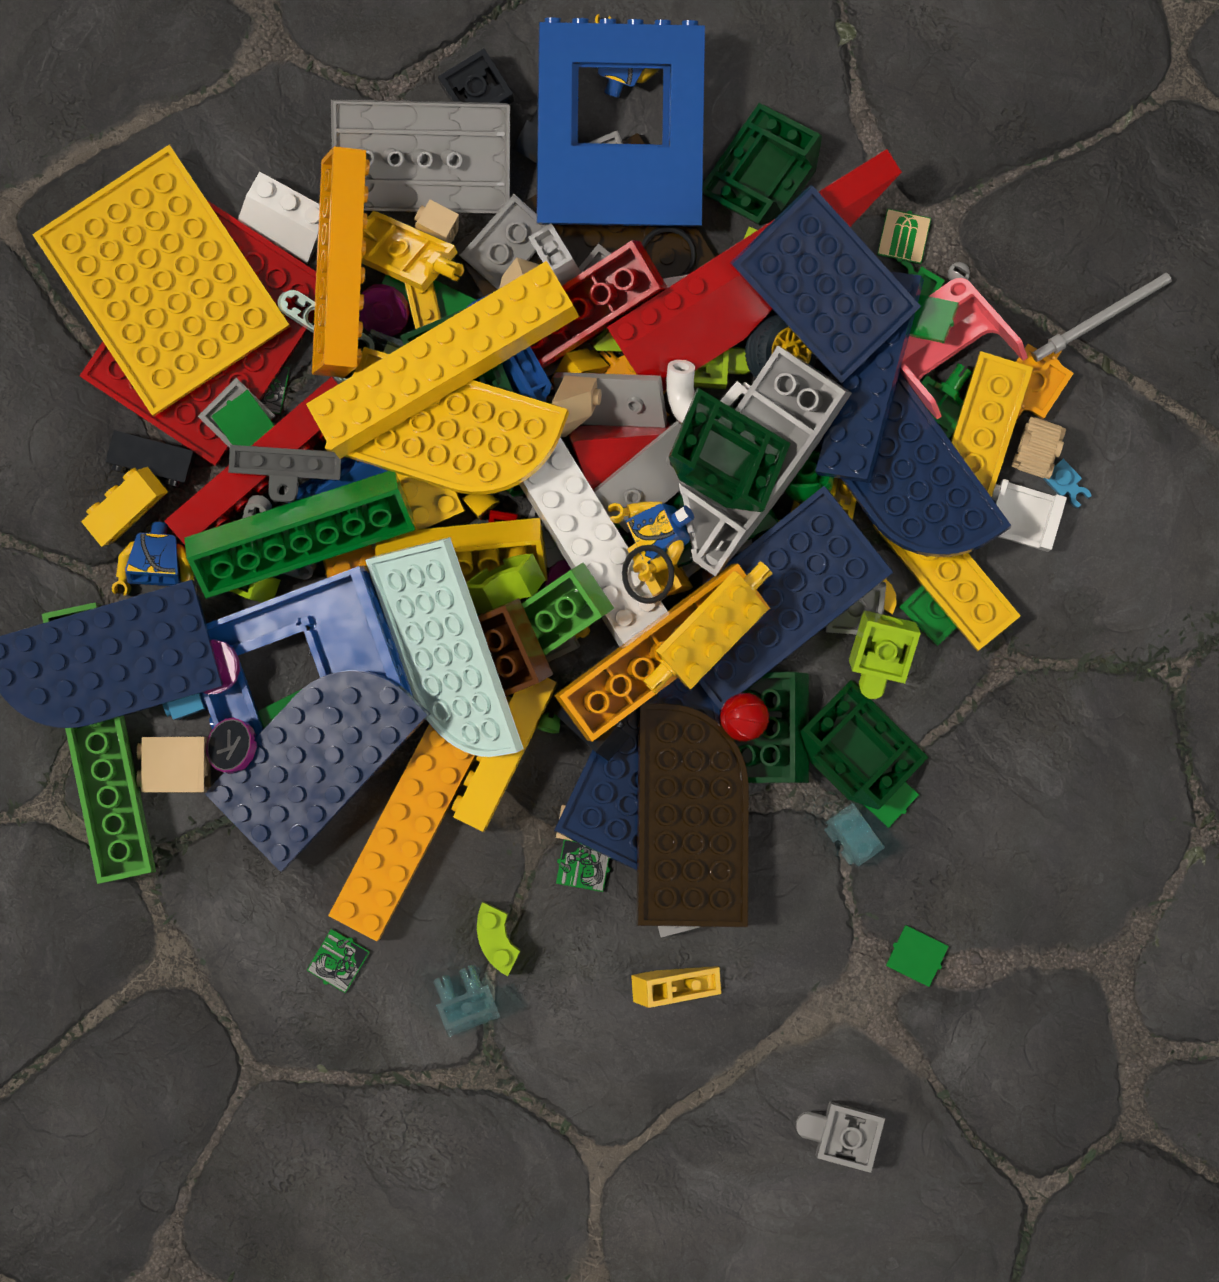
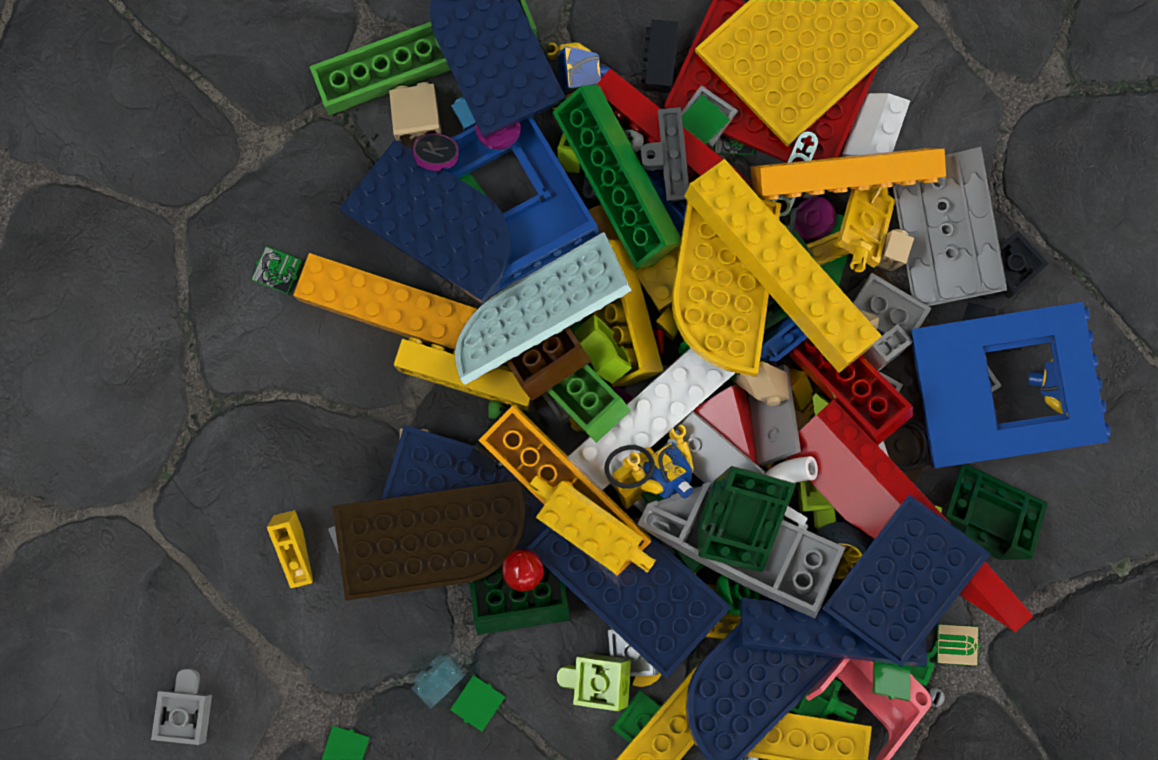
camera: 80 degrees right, 5 degrees down
(123, 505) = (618, 39): yellow brick -> none
(468, 1009) = (247, 379): clear light blue brick -> none
(494, 938) = (309, 392): lime brick -> none
(582, 867) = (378, 455): piece -> none
(860, 748) = (512, 675): dark green slope -> none

